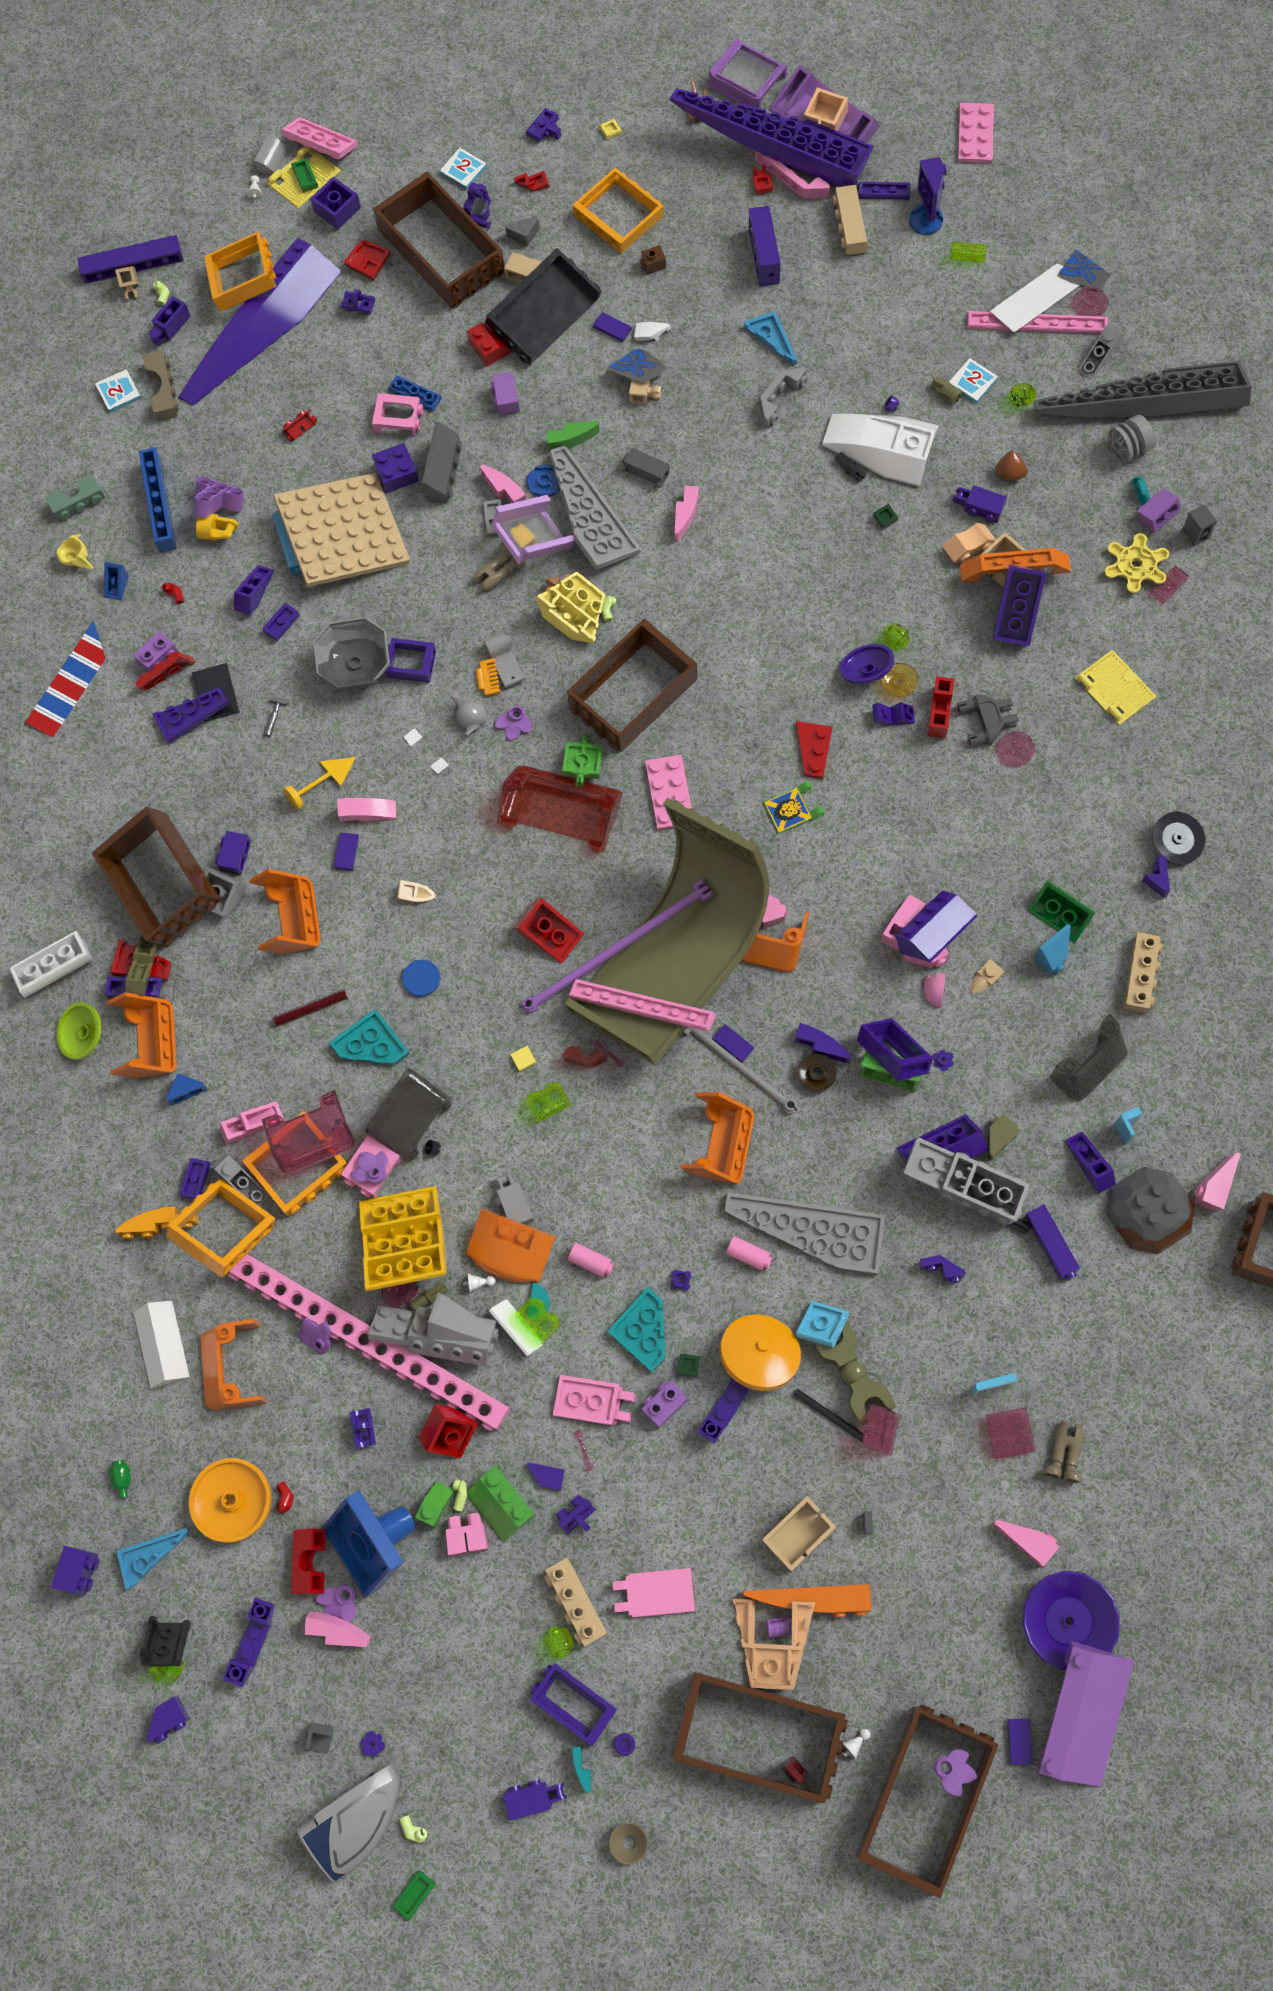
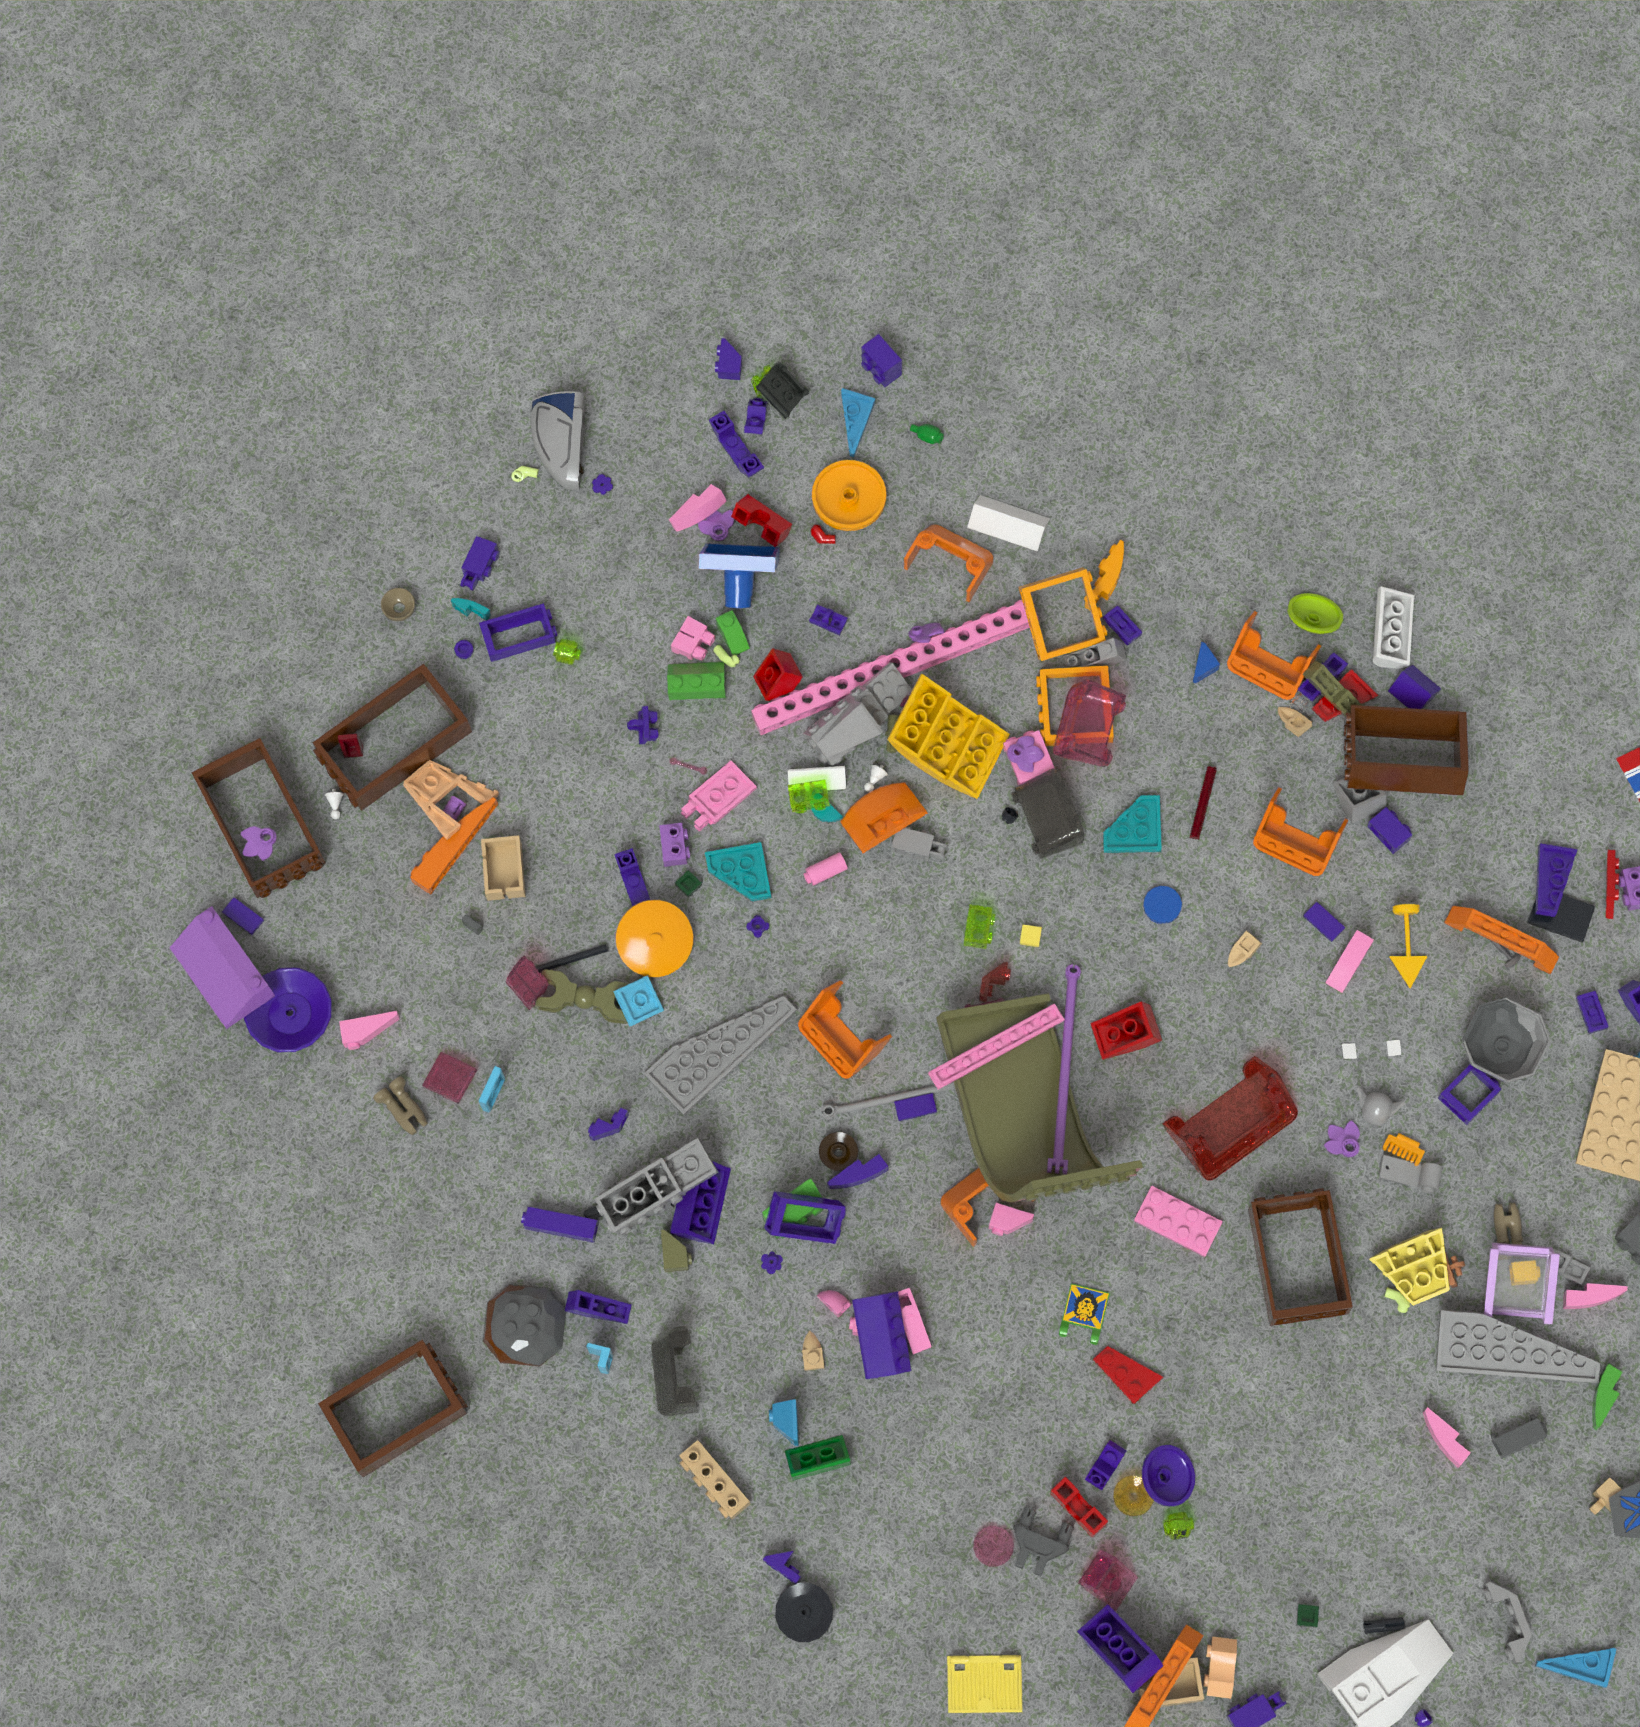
camera: 125 degrees right, 0 degrees up
(95, 915) = (1414, 688): none -> dark purple slope
(187, 986) = (1294, 720): none -> tan plate
(207, 1649) = (756, 416): none -> dark purple slope
(247, 1122) = (1137, 695): bright pink slope -> none
(265, 719) = (1503, 934): none -> orange slope
(319, 1737) = (635, 452): dark grey panel -> none
(414, 1895) = (482, 447): green tile -> none
(540, 484) = (1570, 1334): blue tile -> none
(547, 1476) = (690, 726): dark purple tile -> none
(576, 1602) = (584, 682): tan brick -> none
(582, 760) = (1261, 1167): bright green plate -> none
(656, 1593) = (546, 742): bright pink tile -> none
(749, 1253) = (736, 990): bright pink brick -> none
(974, 656) = (1108, 1579): none -> clear pink slope
(1214, 1189) = (501, 1390): bright pink slope -> none

